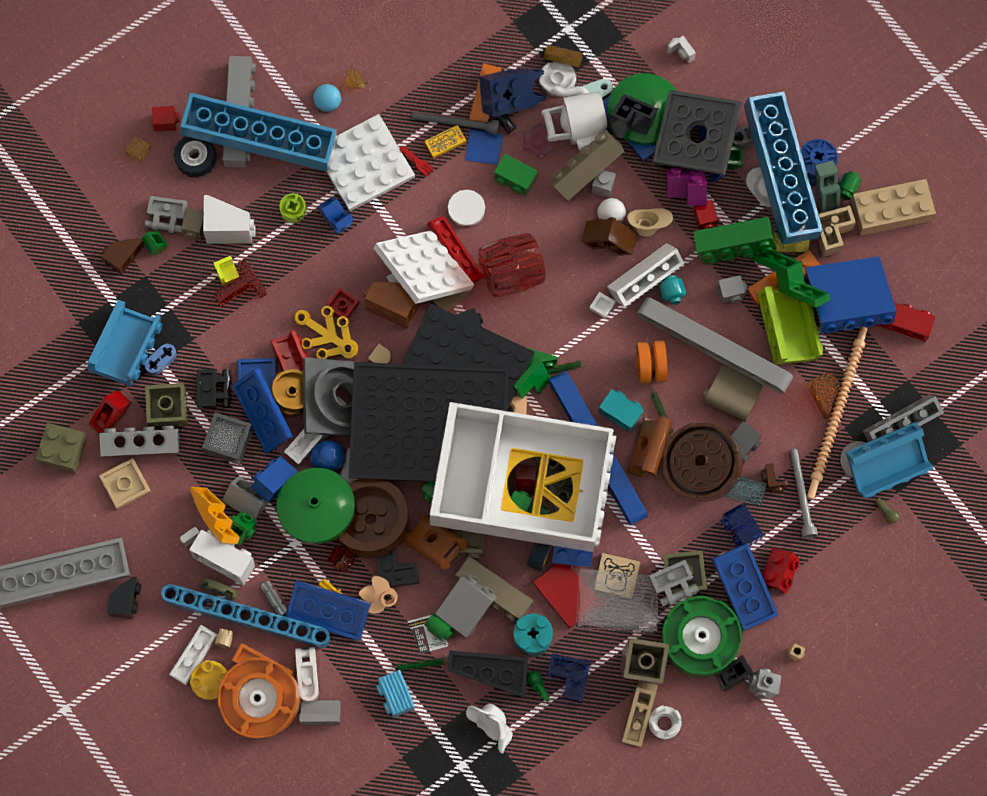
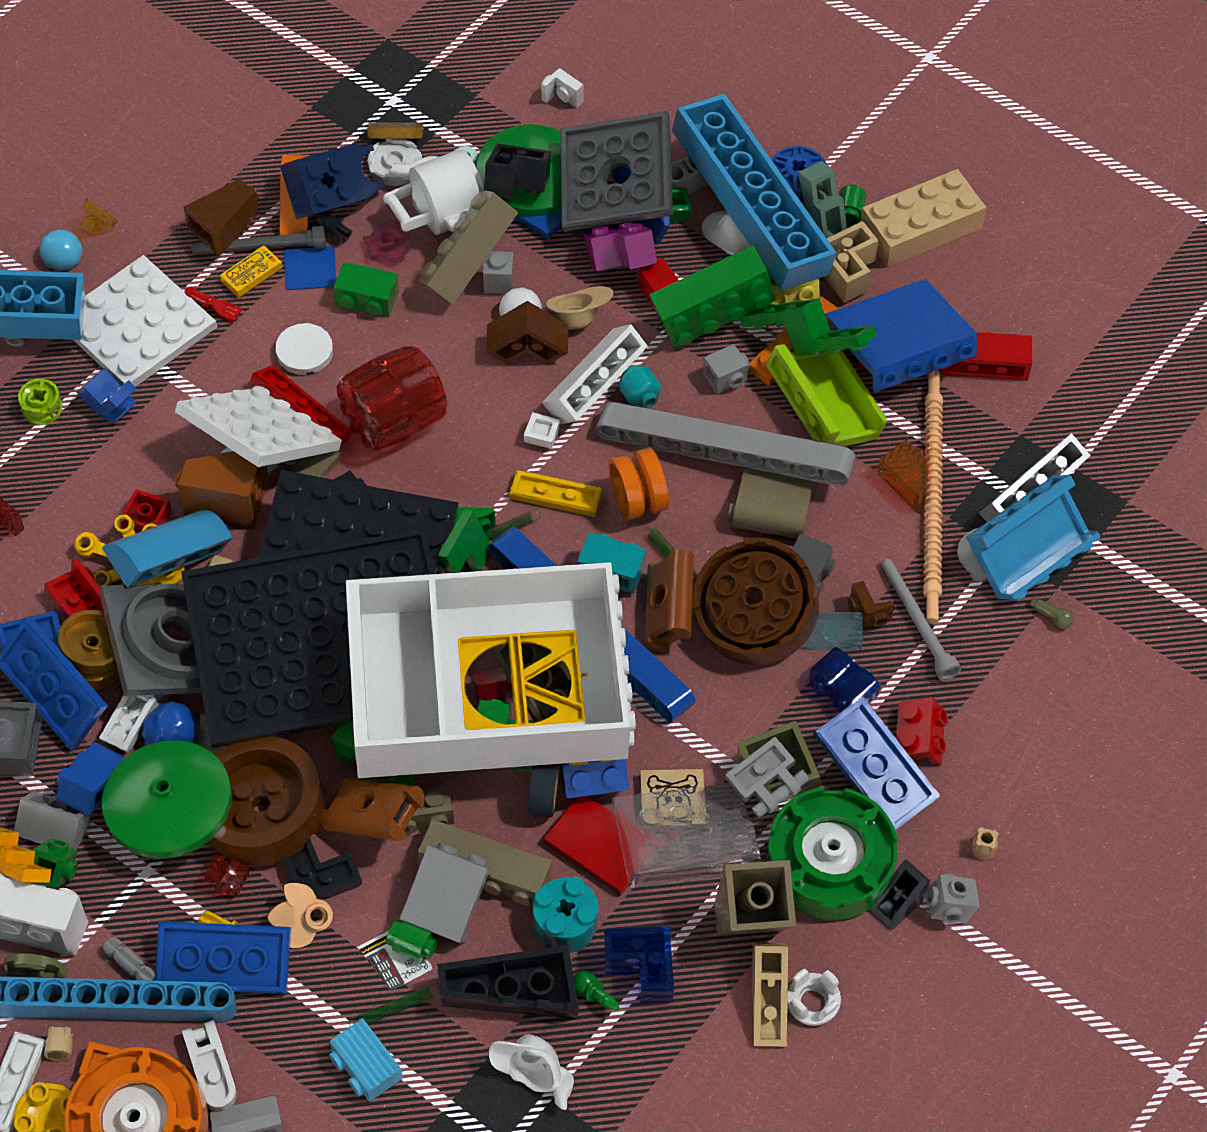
camera: 15 degrees left, 15 degrees down
(350, 335) = (168, 547): none -> dark azure brick
(435, 97) = (222, 215): none -> reddish brown slope
(600, 351) = (556, 493): none -> yellow tile

